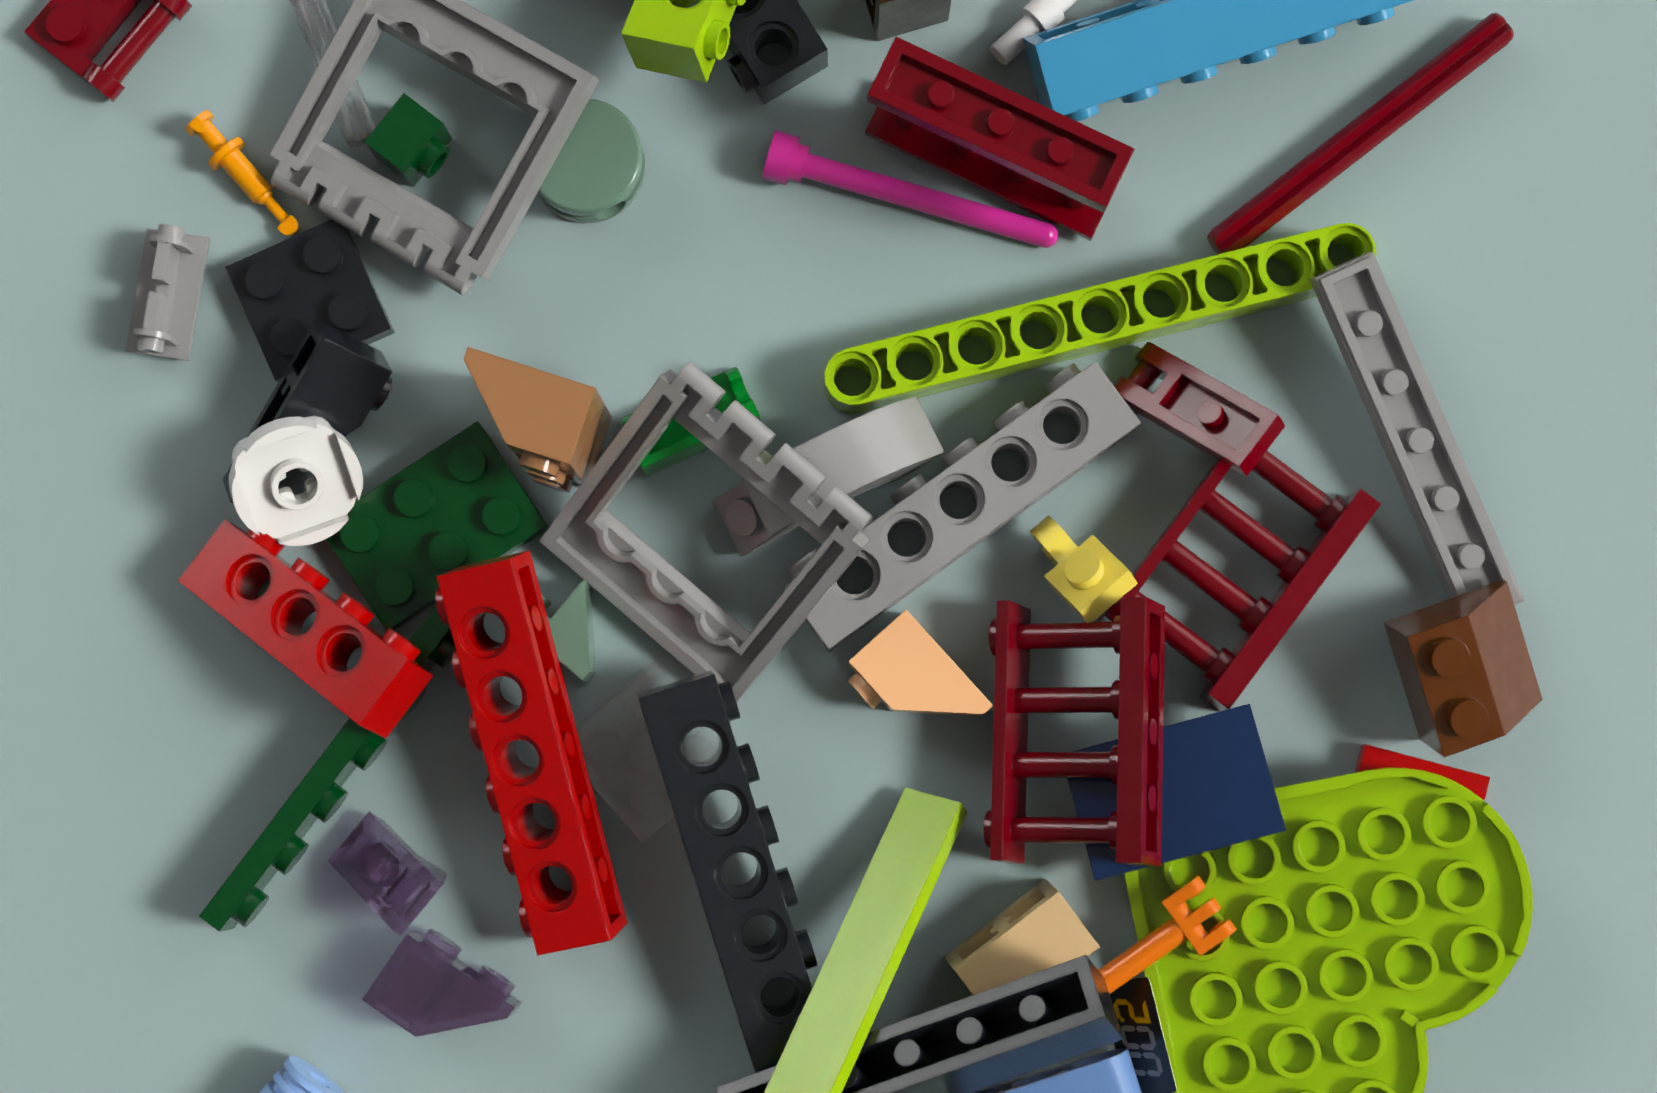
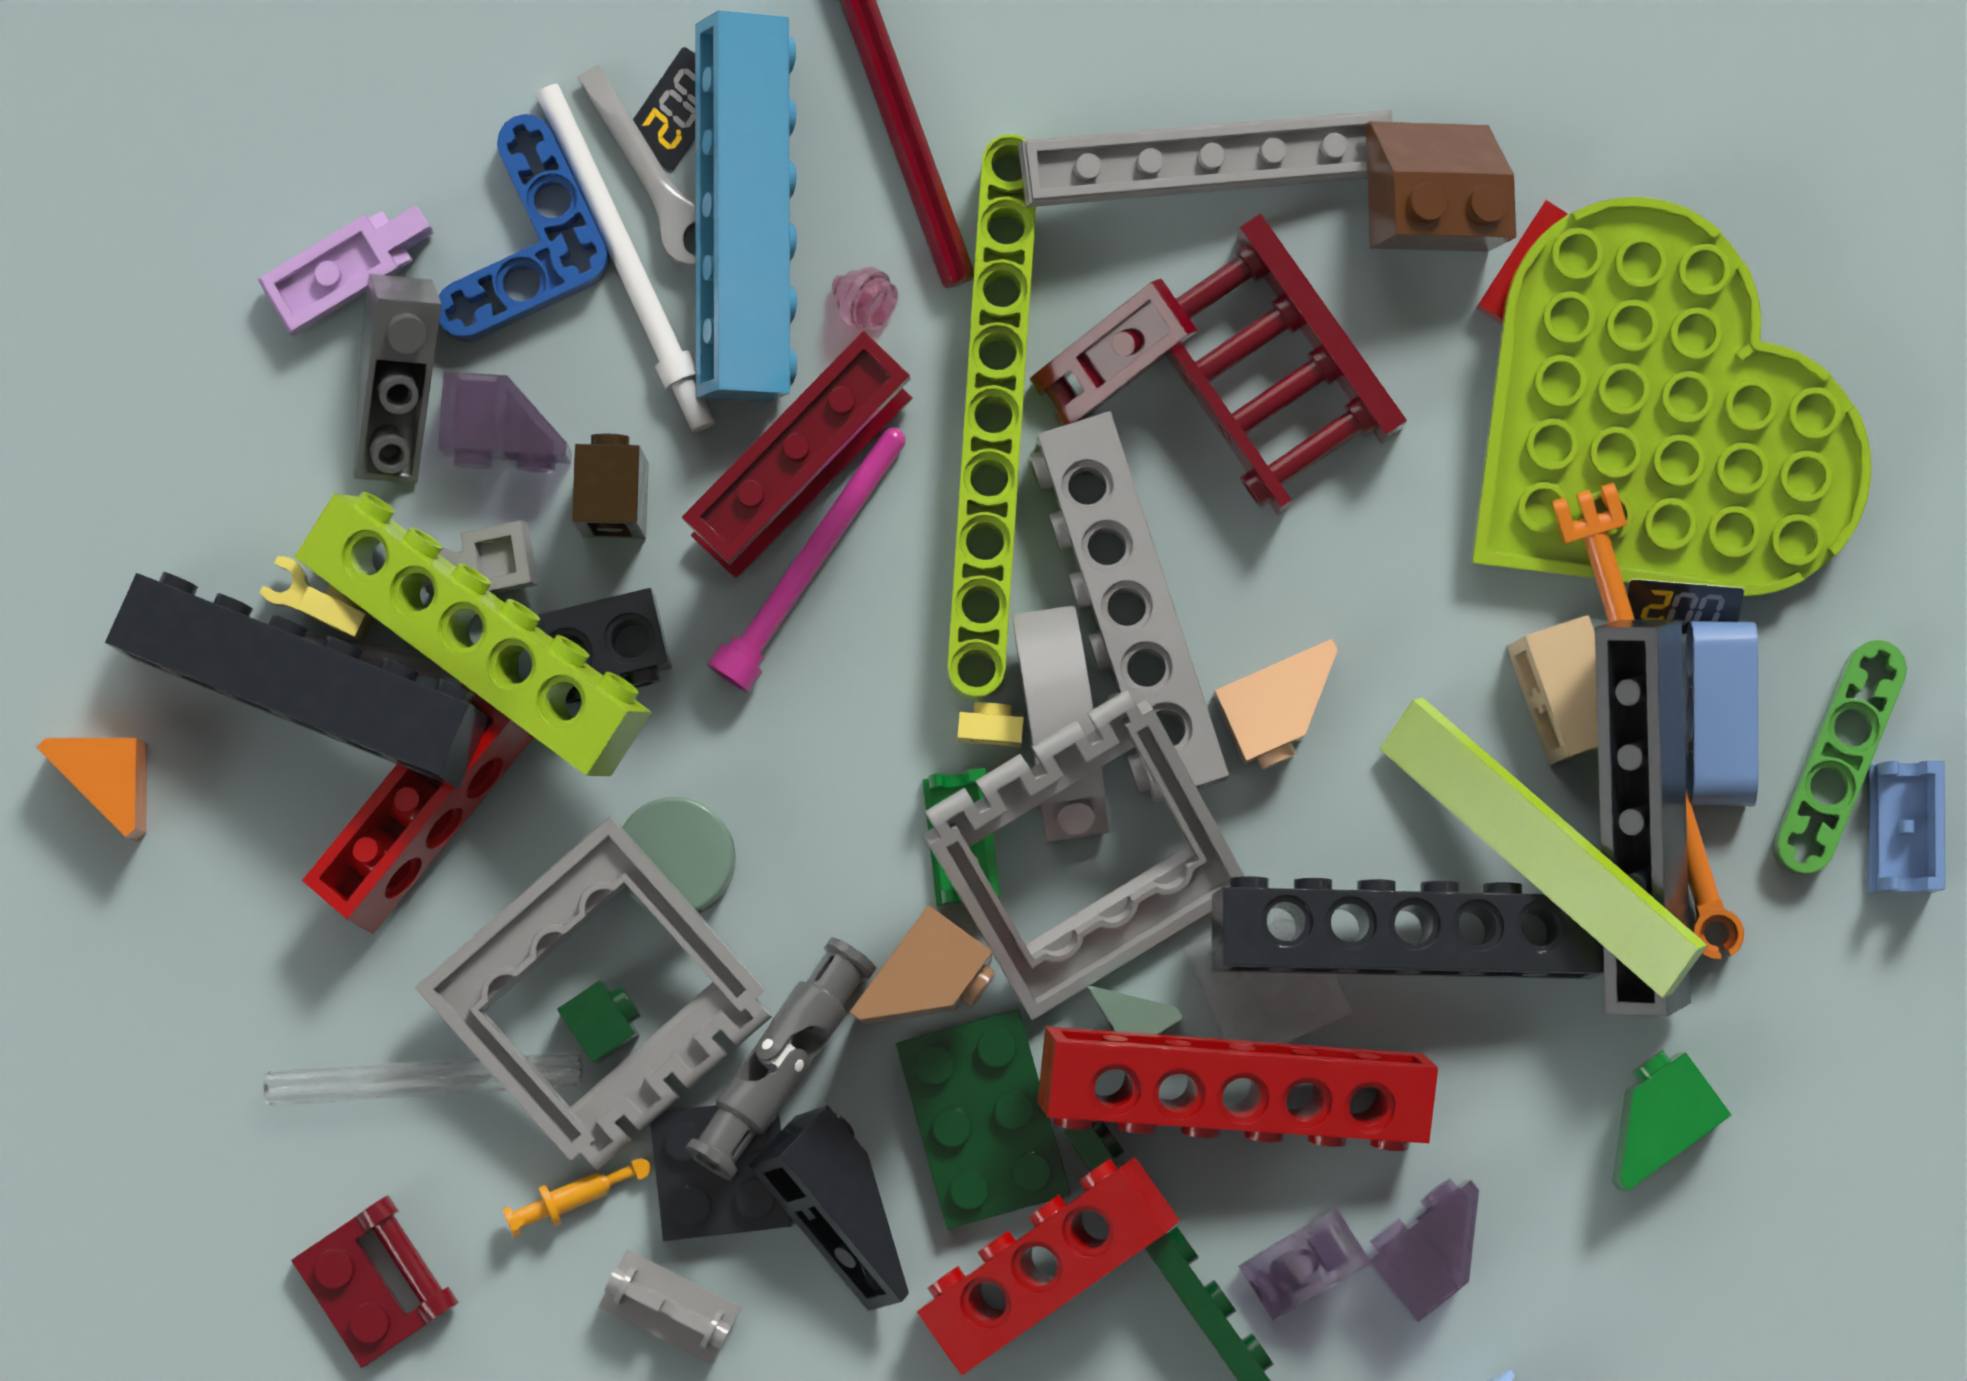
camera: 70 degrees left, 0 degrees up
(287, 445) = (871, 1235): white plate -> none
(380, 303) = (753, 1100): none -> dark grey piece
(804, 409) = (991, 726): none -> light yellow plate
(1085, 575) = (1236, 512): light yellow plate -> none
(1132, 764) = (1370, 507): dark red fence -> none
(1171, 164) = (865, 297): none -> clear pink plate
(1212, 790) = (1467, 498): dark blue tile -> none

